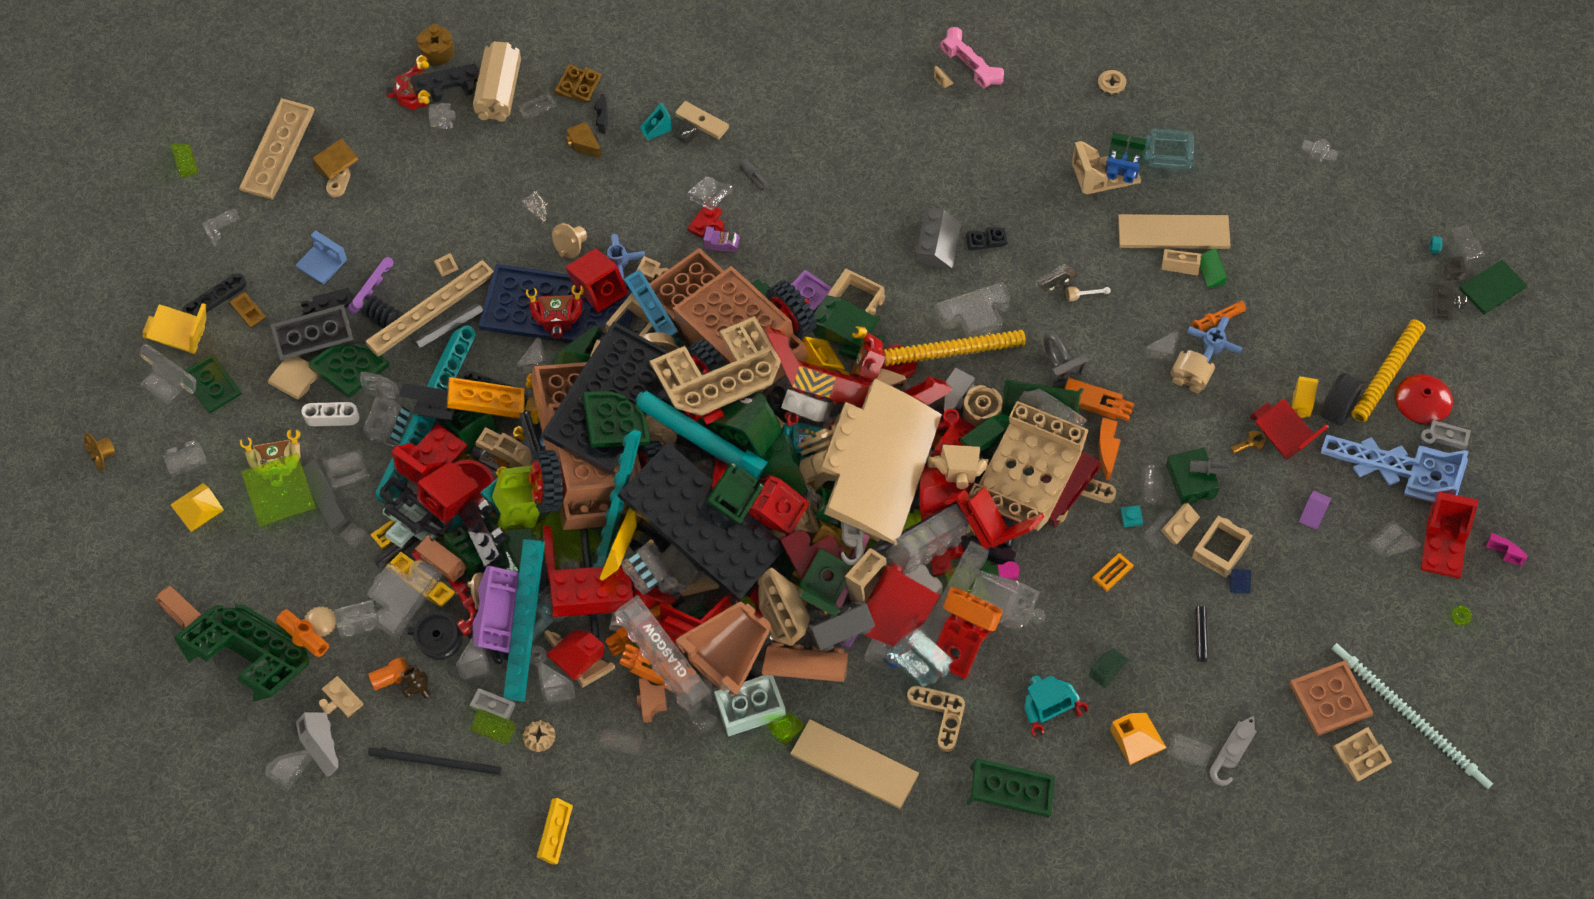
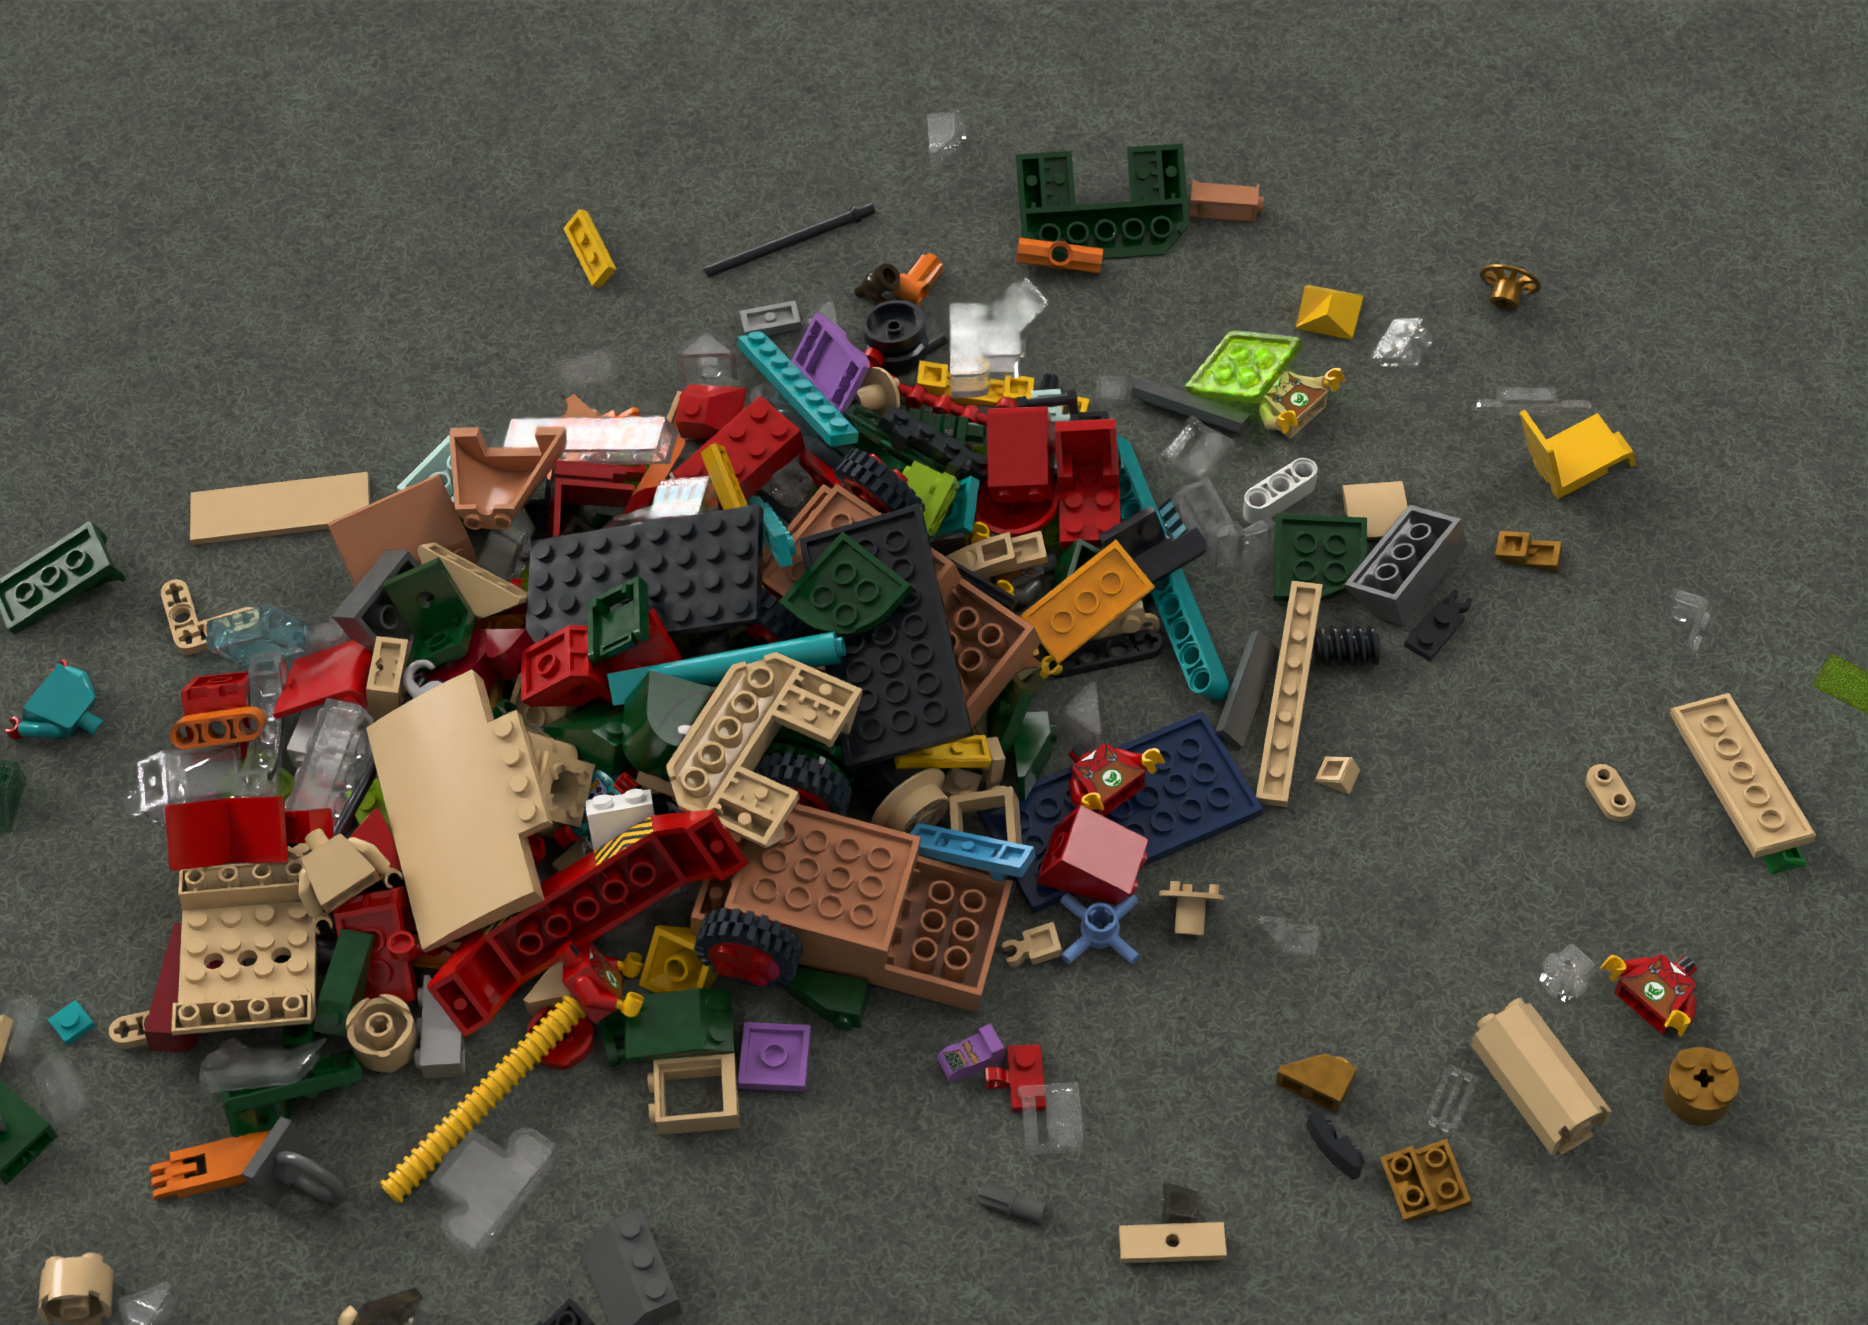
camera: 145 degrees right, 5 degrees down
(212, 294) = (1591, 540): black beam -> none
(213, 384) = (1472, 443): dark green tile -> none
(317, 739) = (938, 174): light grey slope -> none
(322, 258) = (1506, 668): medium blue bracket -> none
(322, 620) = (1059, 287): tan hat -> none
(334, 159) = (1637, 801): pearl gold slope -> none
(341, 697) = (955, 234): tan plate -> none
(366, 290) = (1400, 661): medium lavender plate -> none
(436, 81) = (1632, 1009): black hinge -> none
(441, 559) = (961, 395): nougat window -> none
(493, 726) = (734, 305): clear neon green slope -> none
(545, 741) = (681, 333): tan gear -> none
(657, 123) = (1240, 1193): teal slope -> none
(786, 727) = (387, 476): clear neon green slope -> none
(1101, 583) = (70, 935): light orange tile -> none
(1108, 446) = (156, 1098): orange slope -> none

